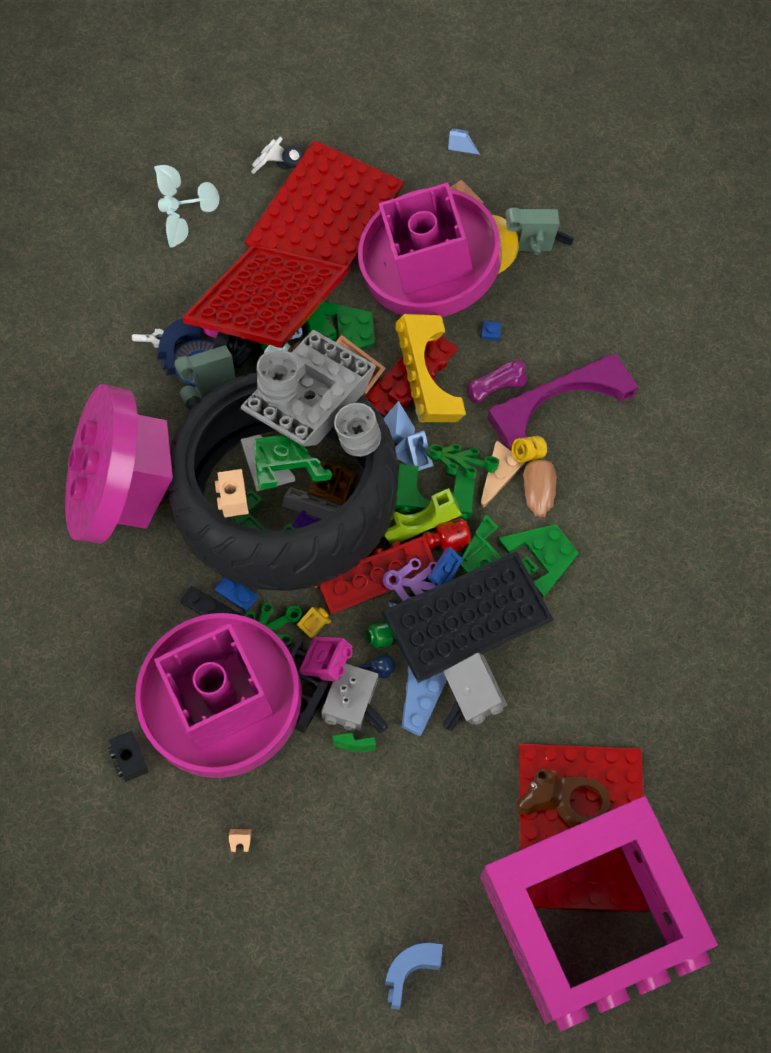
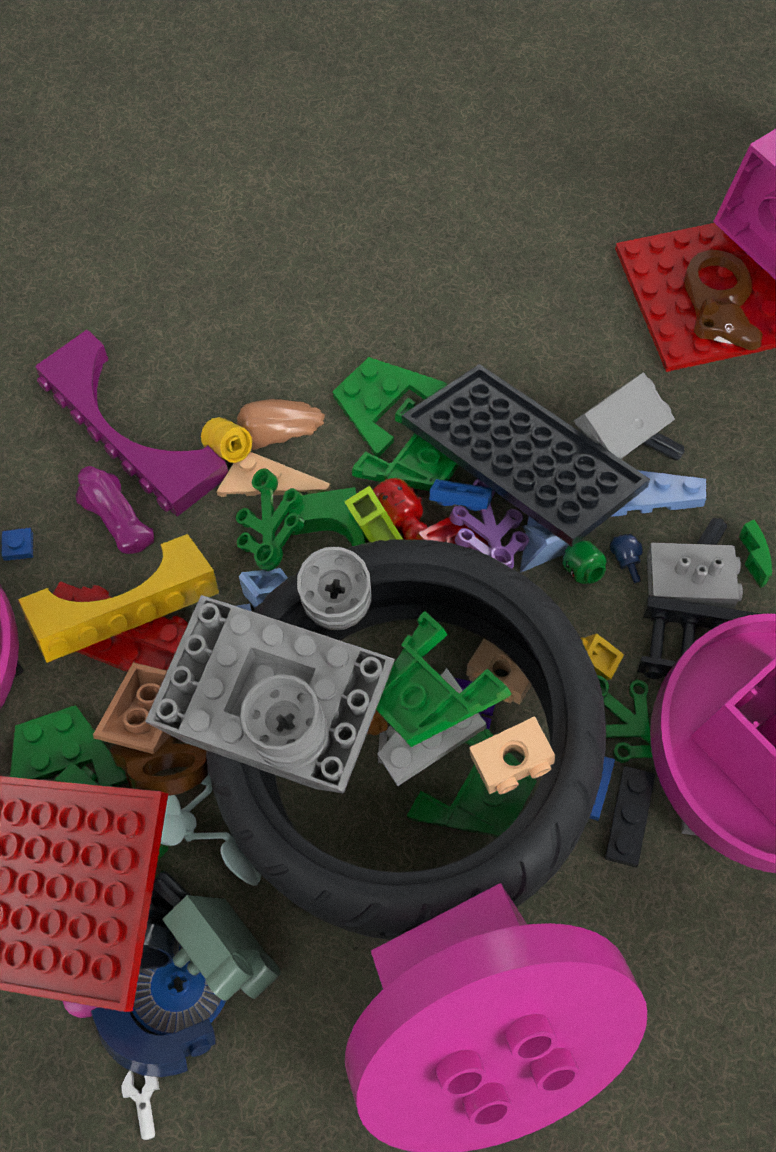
camera: 100 degrees left, 0 degrees up
(326, 658) = (663, 609): dark pink plate -> none

